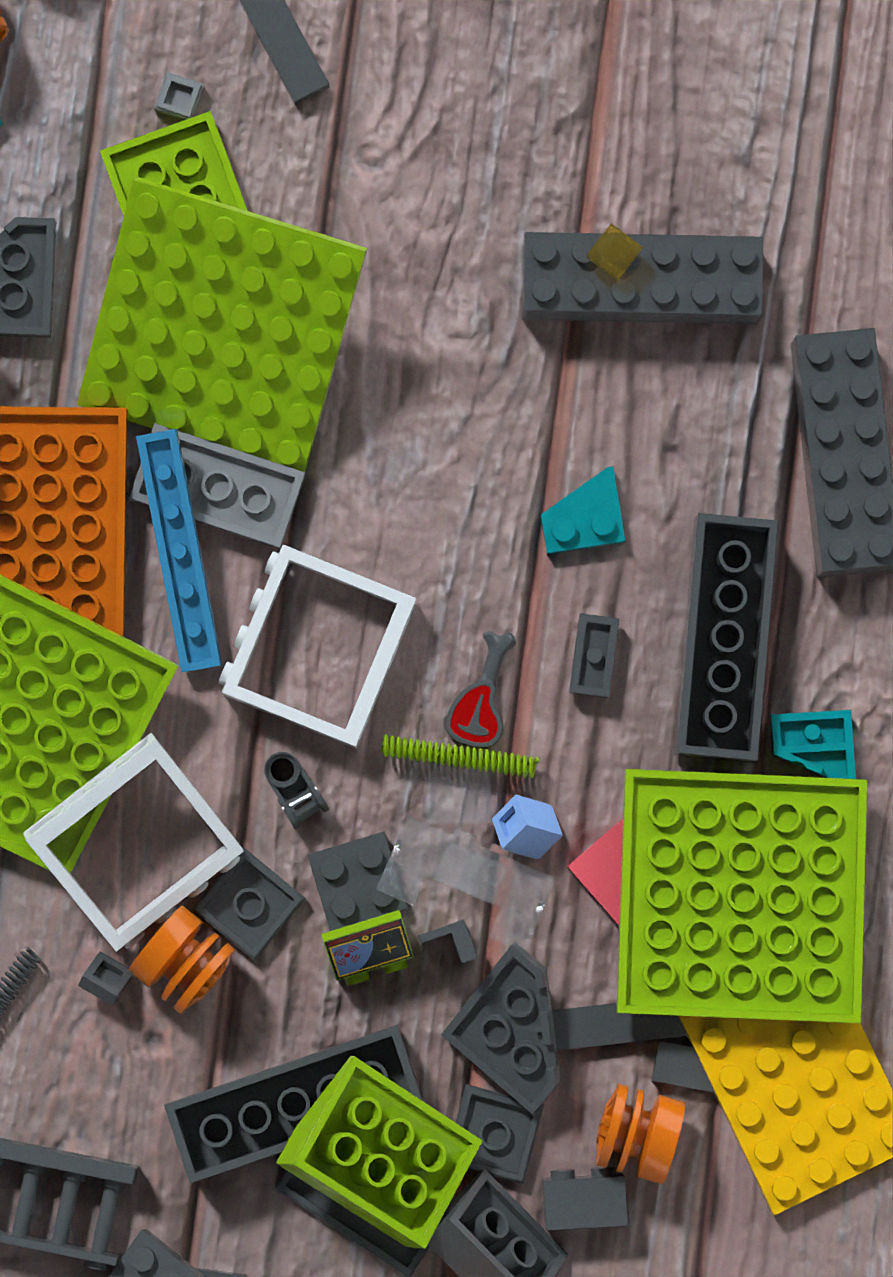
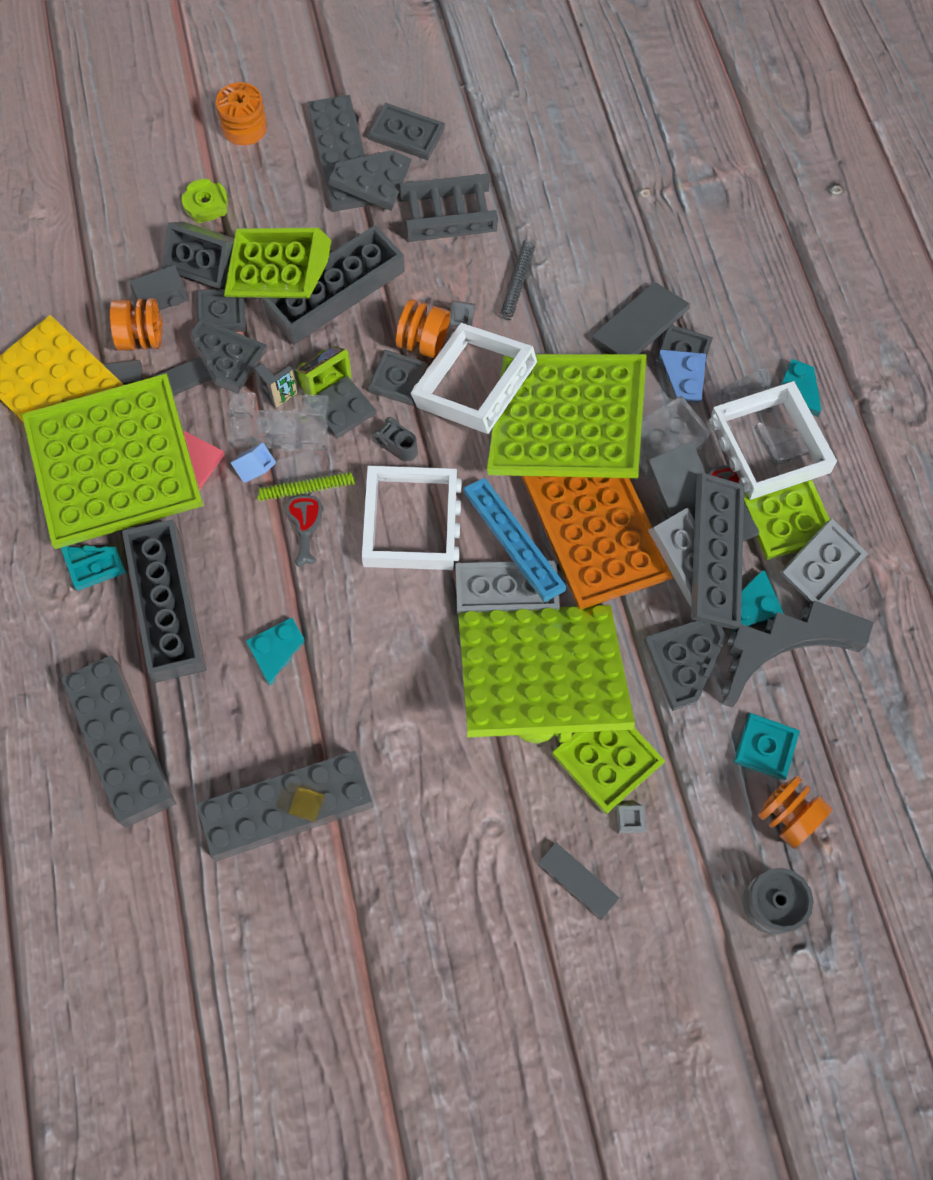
camera: 160 degrees right, 15 degrees down
(594, 655) = (244, 568): dark grey plate -> none

